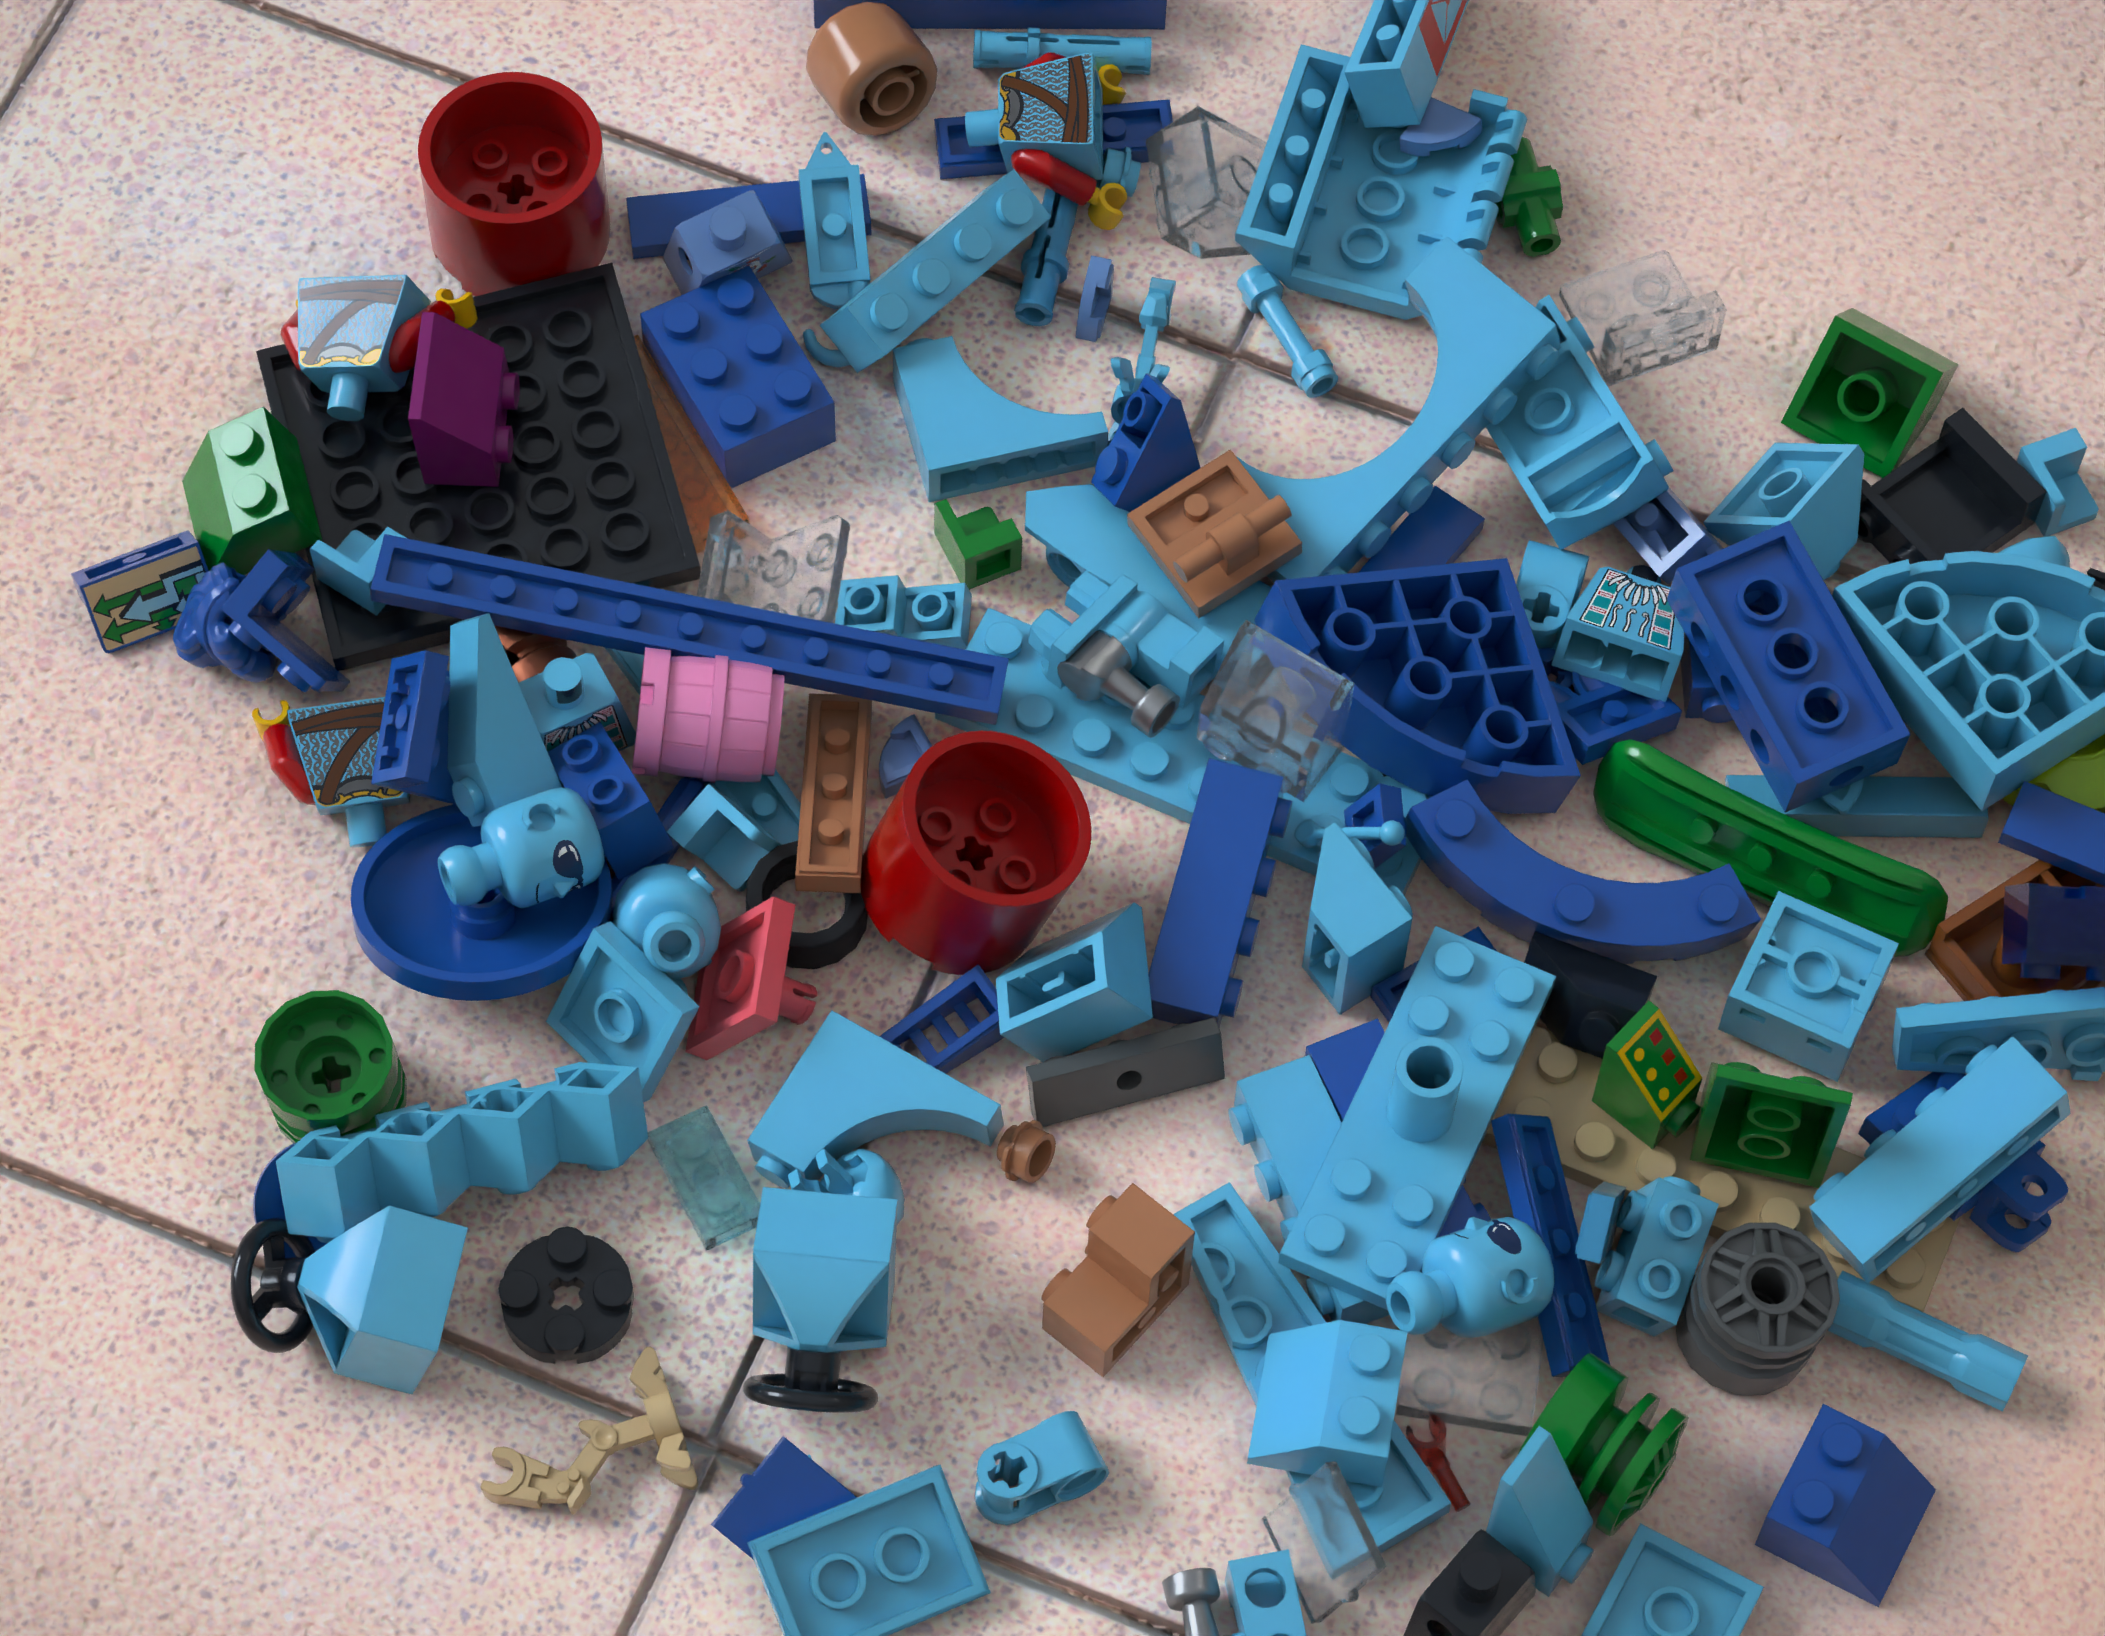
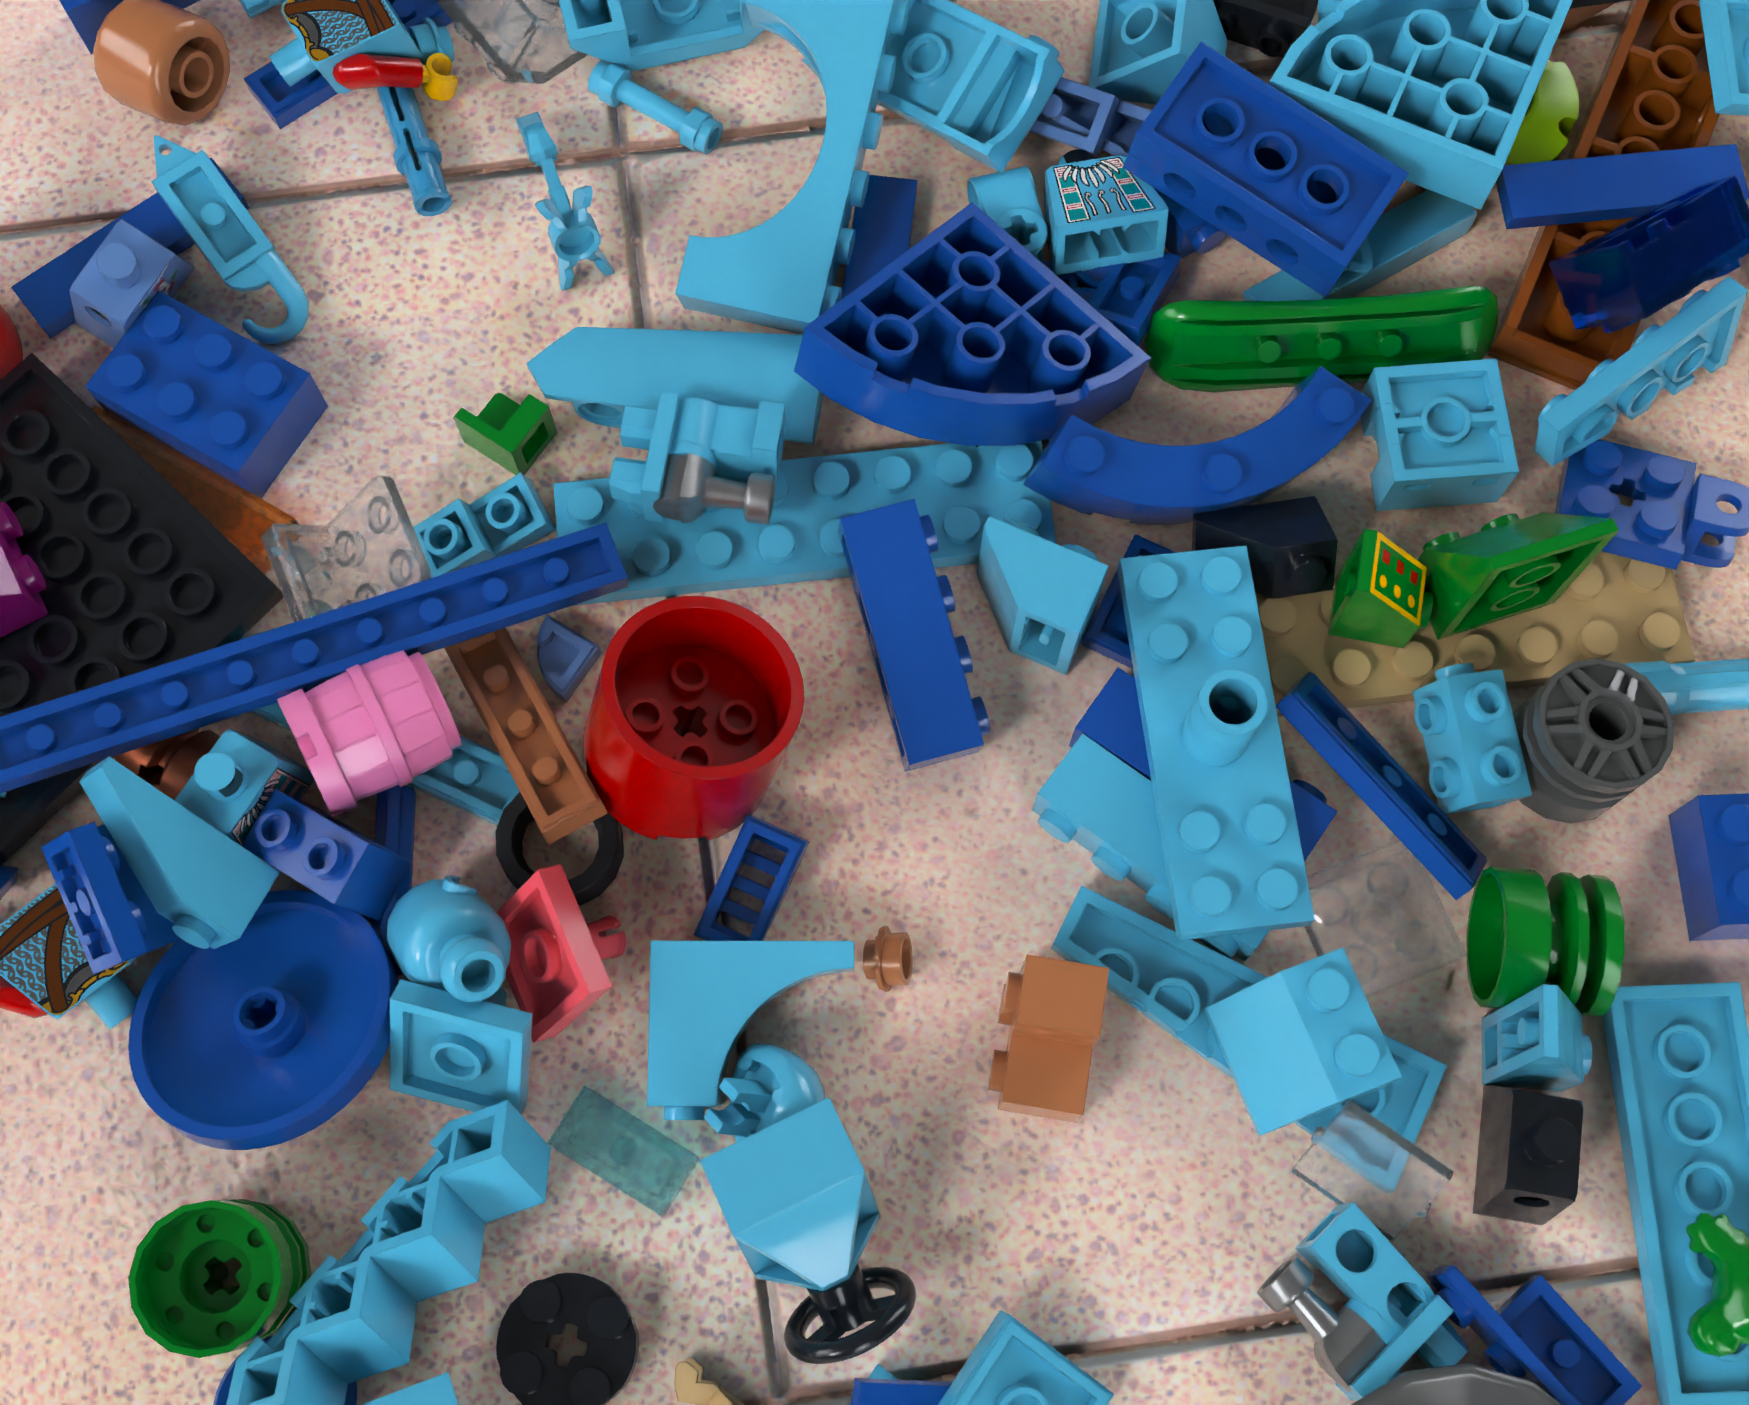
camera: 30 degrees left, 10 degrees up
(527, 851) = (282, 955): medium azure piece -> none
(723, 836) = (450, 824): medium azure panel -> none
(935, 271) = (327, 210): medium azure brick -> none
(976, 438) = (448, 337): medium azure arch -> none
(1047, 1462) = (1092, 1243): medium azure piece -> none
(1077, 987) = (847, 784): medium azure slope -> none
(1095, 299) = (478, 162): medium blue tile -> none
(1125, 1072) = (929, 836): dark grey tile -> none
(1148, 449) = (617, 273): blue slope -> none
(1215, 533) = (716, 312): nougat plate -> none
(1275, 710) = (867, 442): clear slope -> none
(1374, 809) = (1010, 492): blue plate -> none
(1390, 833) = (955, 533): medium azure hinge -> none
(1434, 1456) = (1406, 1031): clear red hand -> none
(1475, 1281) = (1362, 862): medium azure piece -> none
(1599, 1222) = (1418, 742): dark azure tile -> none
(1939, 1158) = (1660, 525): medium azure brick -> none

